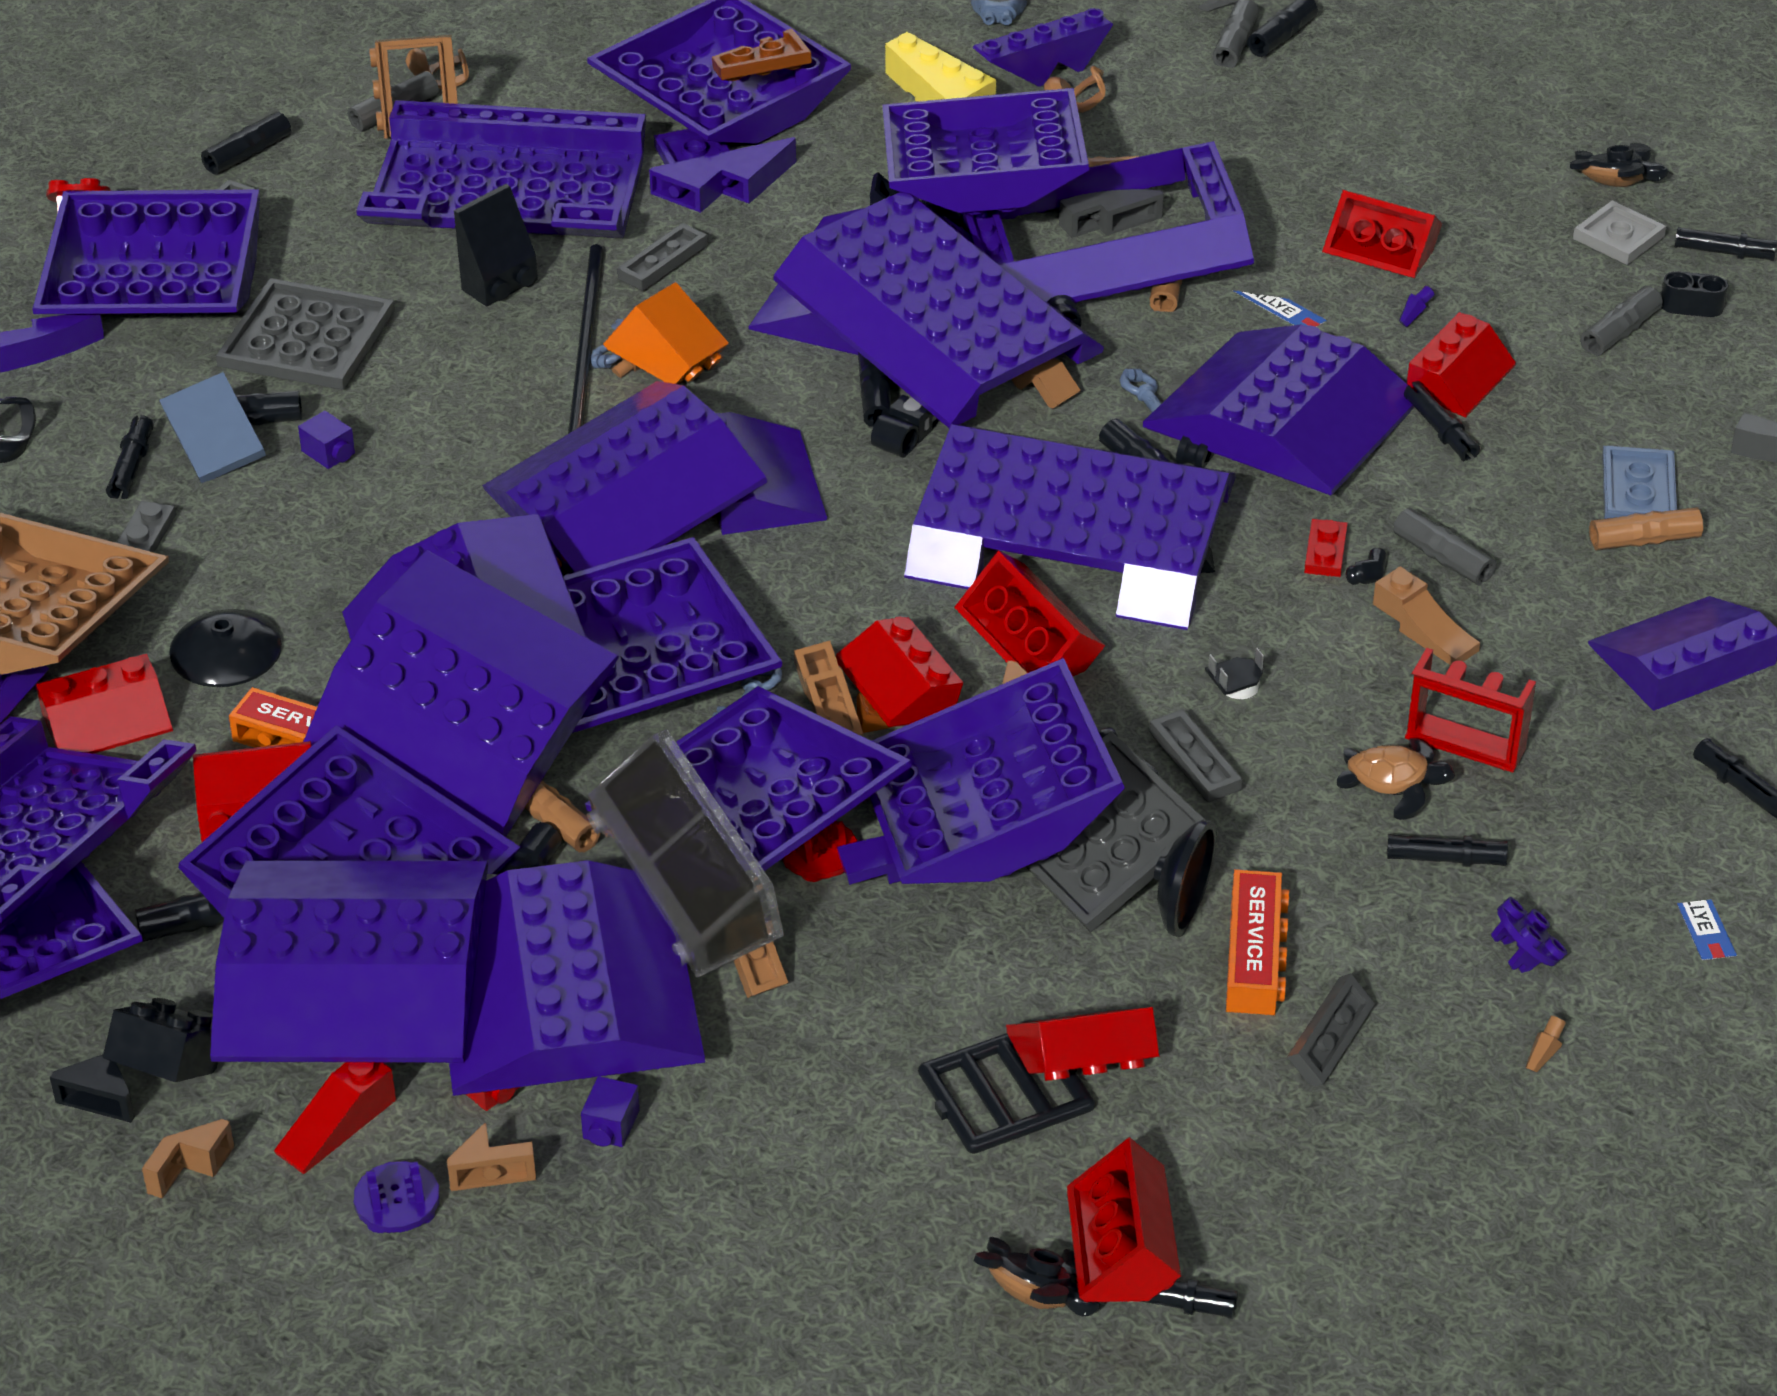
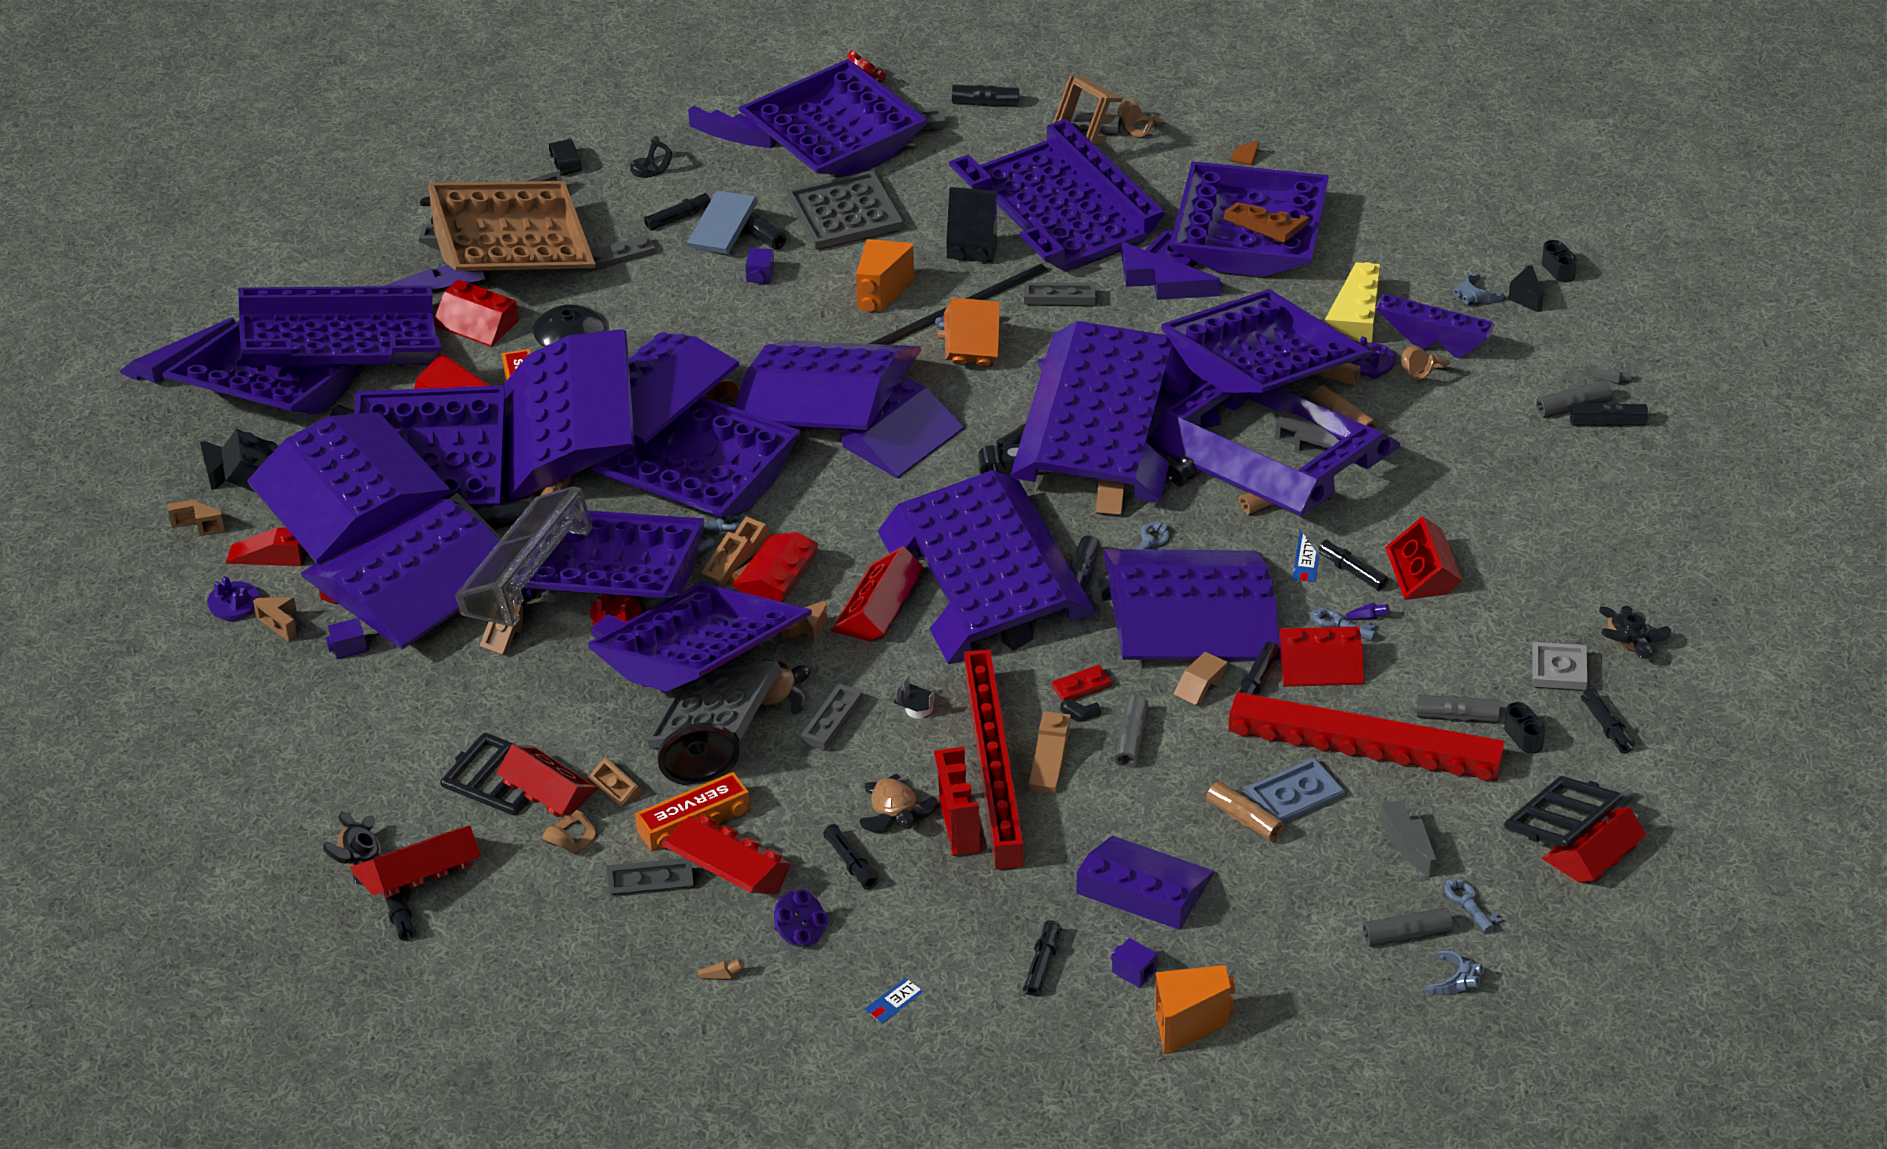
camera: 55 degrees right, 0 degrees up
(477, 353) = (883, 273): none -> orange slope
(588, 32) = (1245, 153): none -> dark orange slope
(1127, 988) = (615, 783): none -> medium nougat slope
(1191, 1078) = (559, 837): none -> medium nougat piece
(1321, 282) = (1345, 560): none -> black pin
(1376, 938) = (728, 854): none -> red slope
(1388, 653) = (993, 760): none -> red brick
(1411, 332) = (1339, 621): none -> sand blue piece
(1412, 457) = (1199, 676): none -> medium nougat slope
(1606, 397) = (1366, 736): none -> red brick

